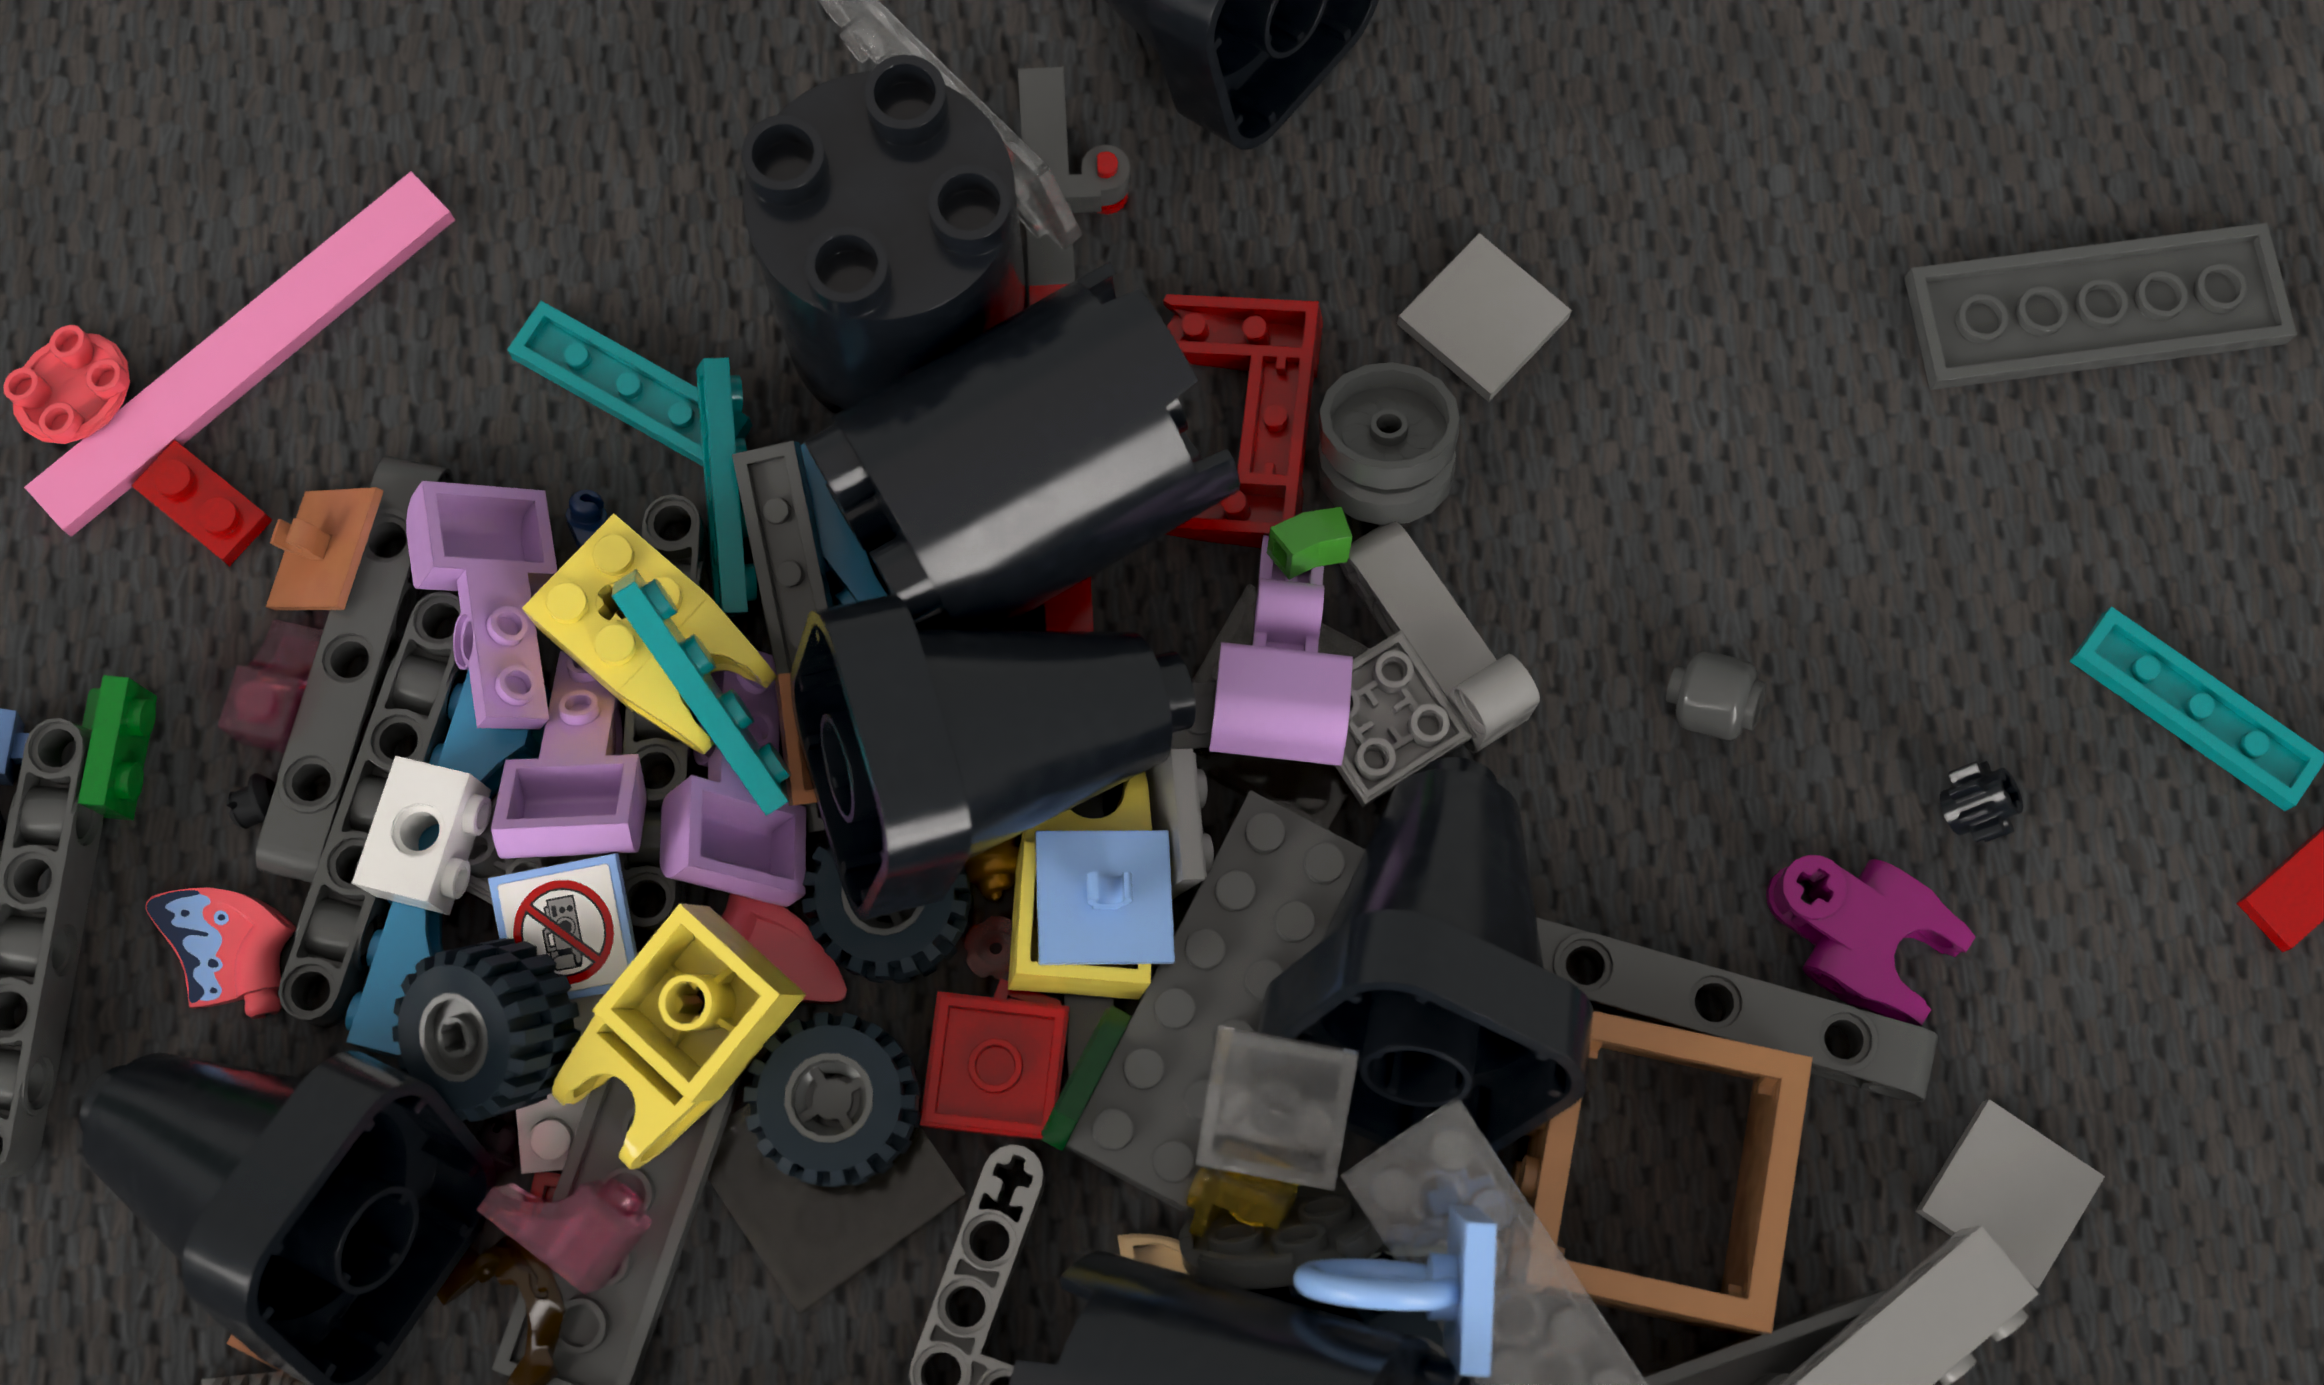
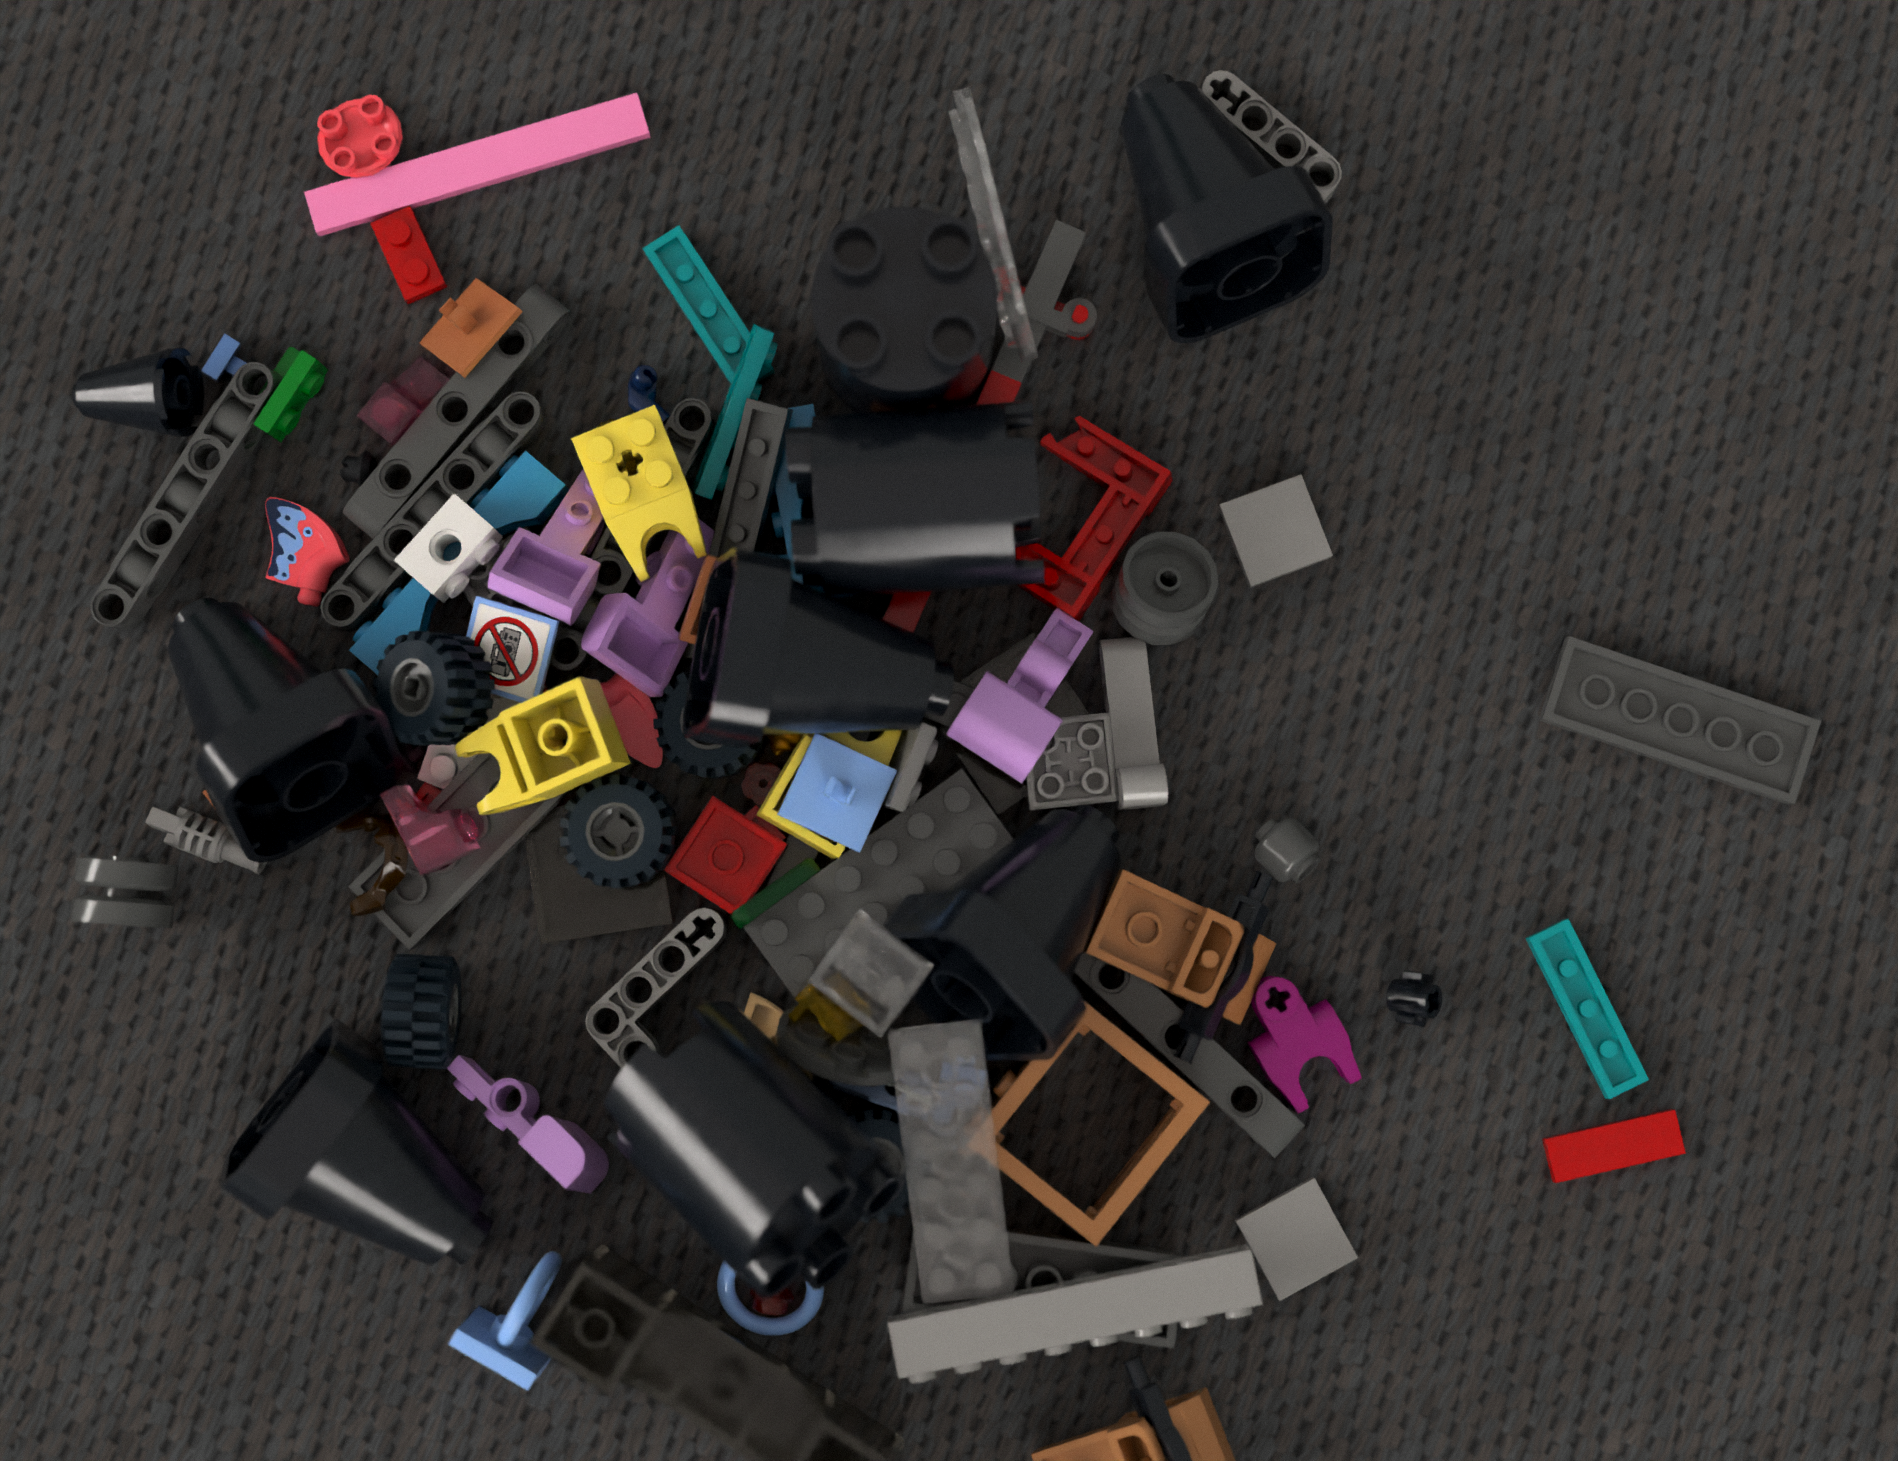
camera: 25 degrees right, 10 degrees up
(496, 554) = (573, 384): lavender plate -> none
(688, 668) = (652, 530): teal plate -> none
(1310, 541) = (1081, 628): bright green piece -> none
(1450, 1287) = (910, 1127): light blue tile -> none
(1666, 878) = (1187, 949): none -> medium nougat piece

